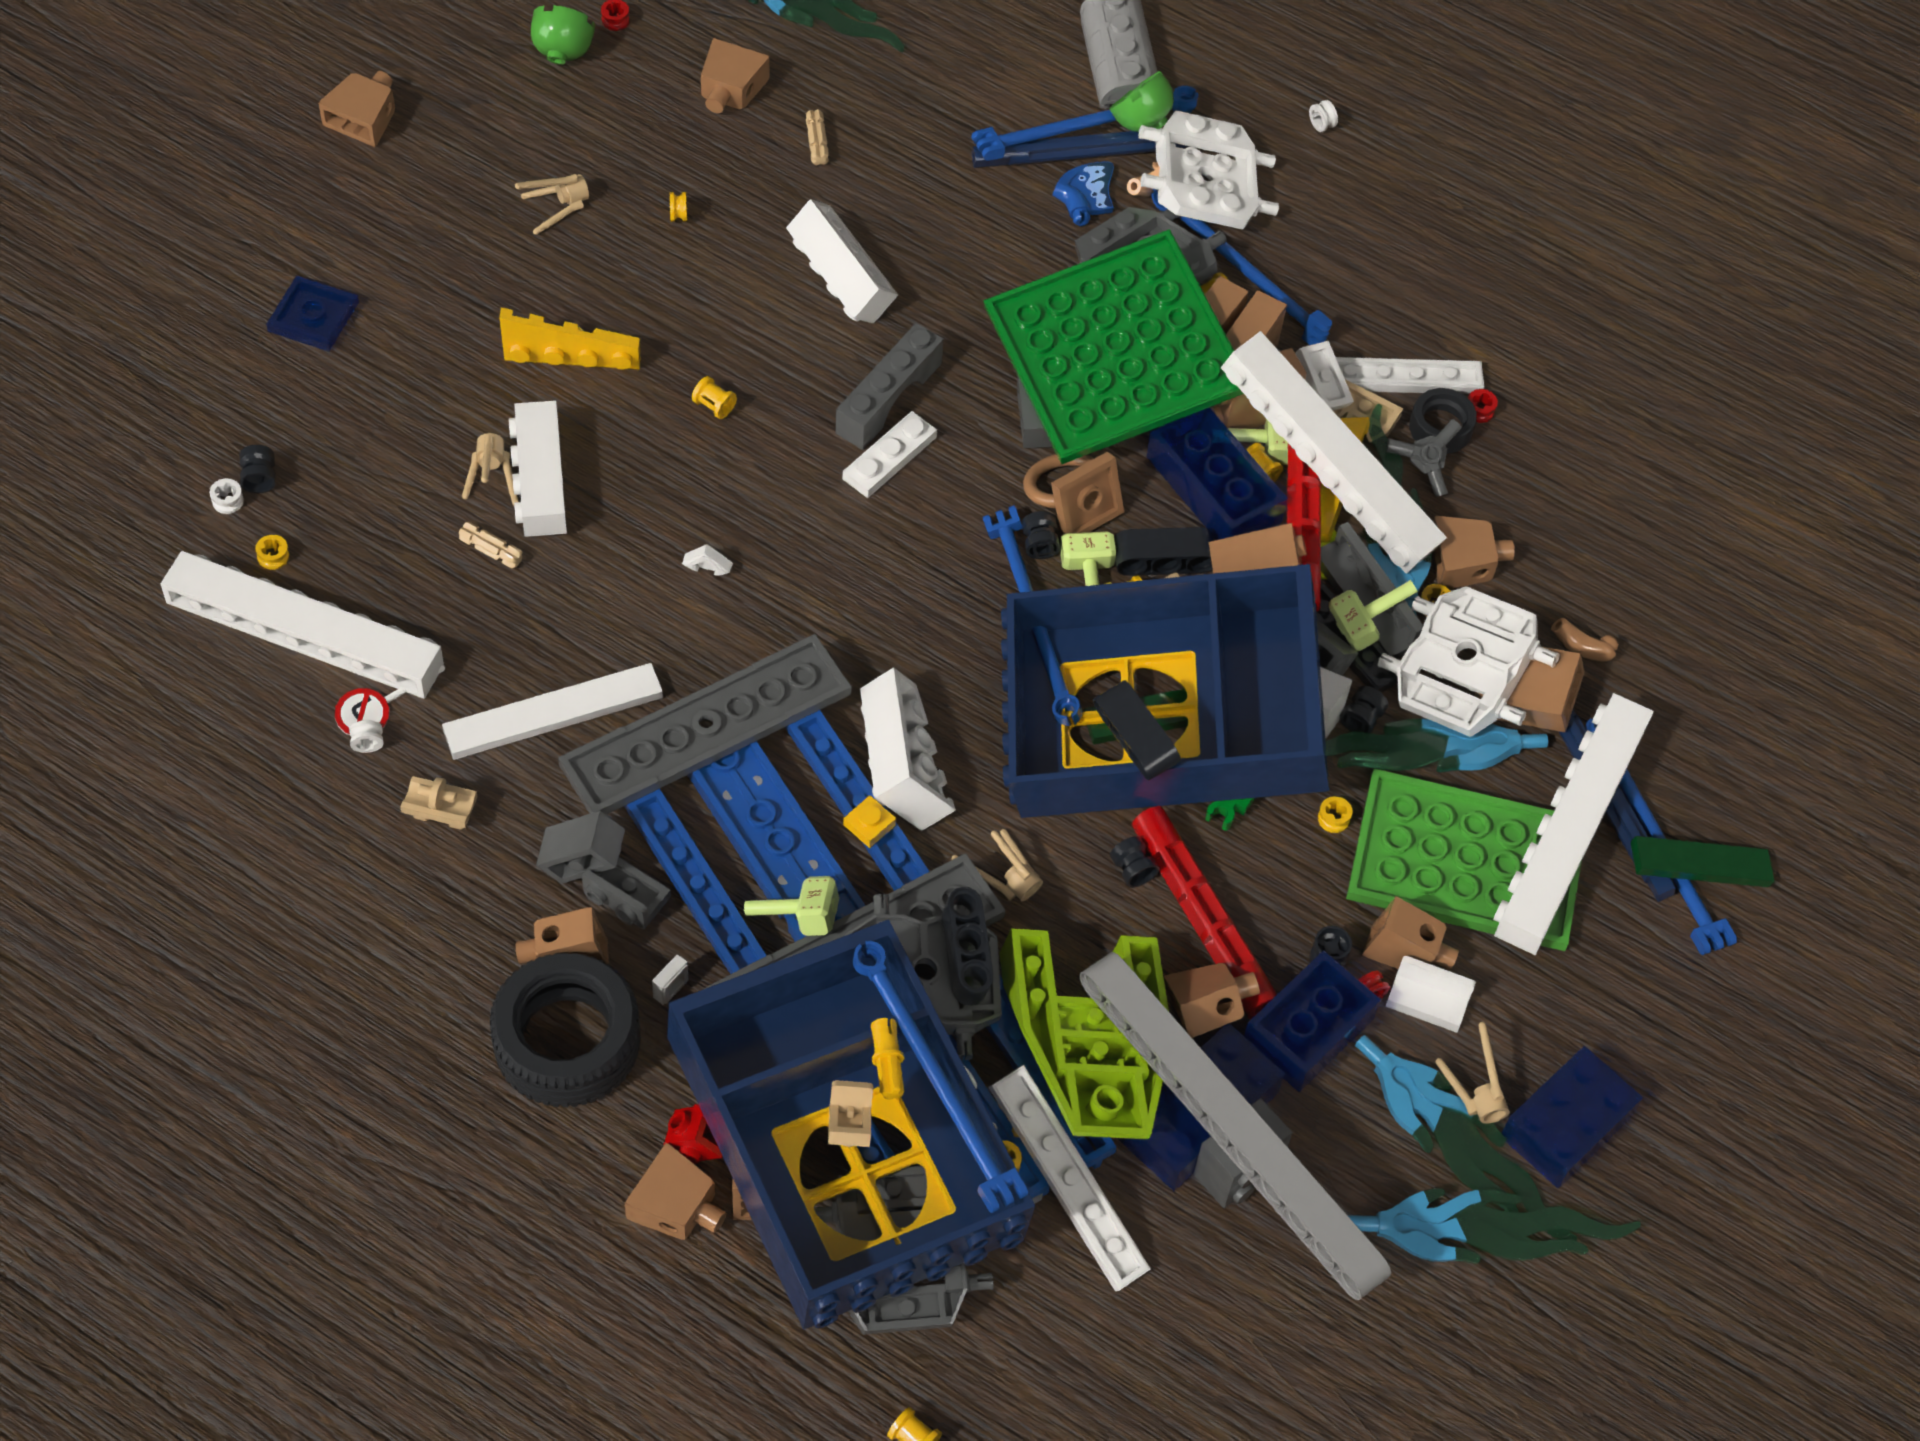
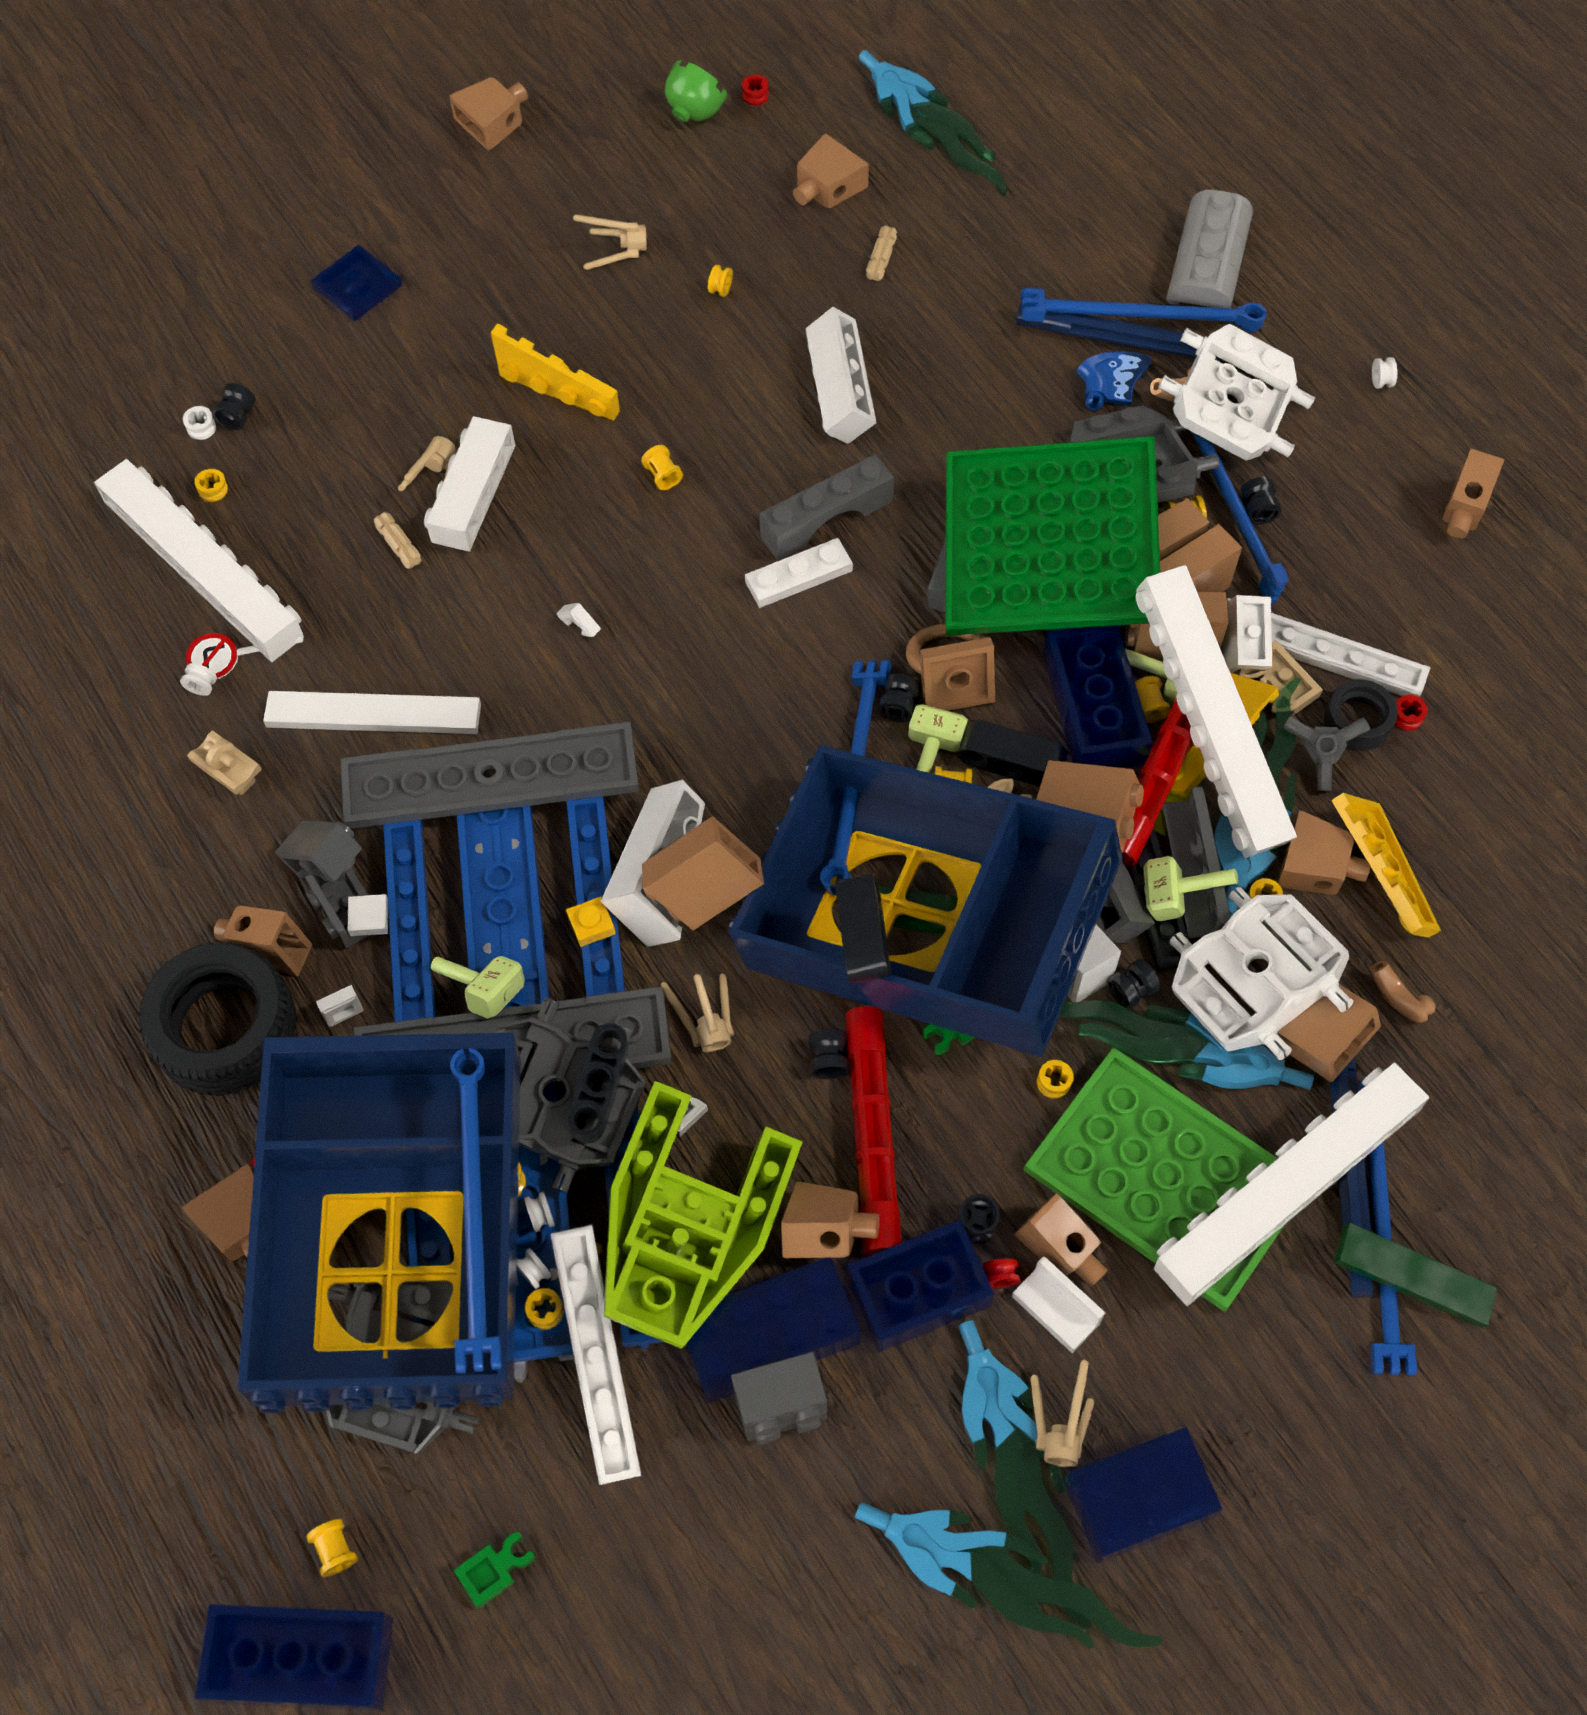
camera: 30 degrees right, 5 degrees up
(657, 889) = (368, 915): none -> white tile
(850, 1113) = (365, 1219): tan bracket -> none
(887, 1058) = (433, 1175): yellow axle -> none
(961, 739) = (702, 873): none -> medium nougat brick
(1063, 1398) = (488, 1572): none -> green plate
(1145, 104) = (1201, 309): bright green cylinder -> none
(1236, 1127) = (768, 1380): light grey beam -> none
(1271, 260) = (1260, 498): none -> black wheel
(1445, 207) = (1471, 492): none -> medium nougat torso
(1523, 534) = (1385, 856): none -> yellow wing

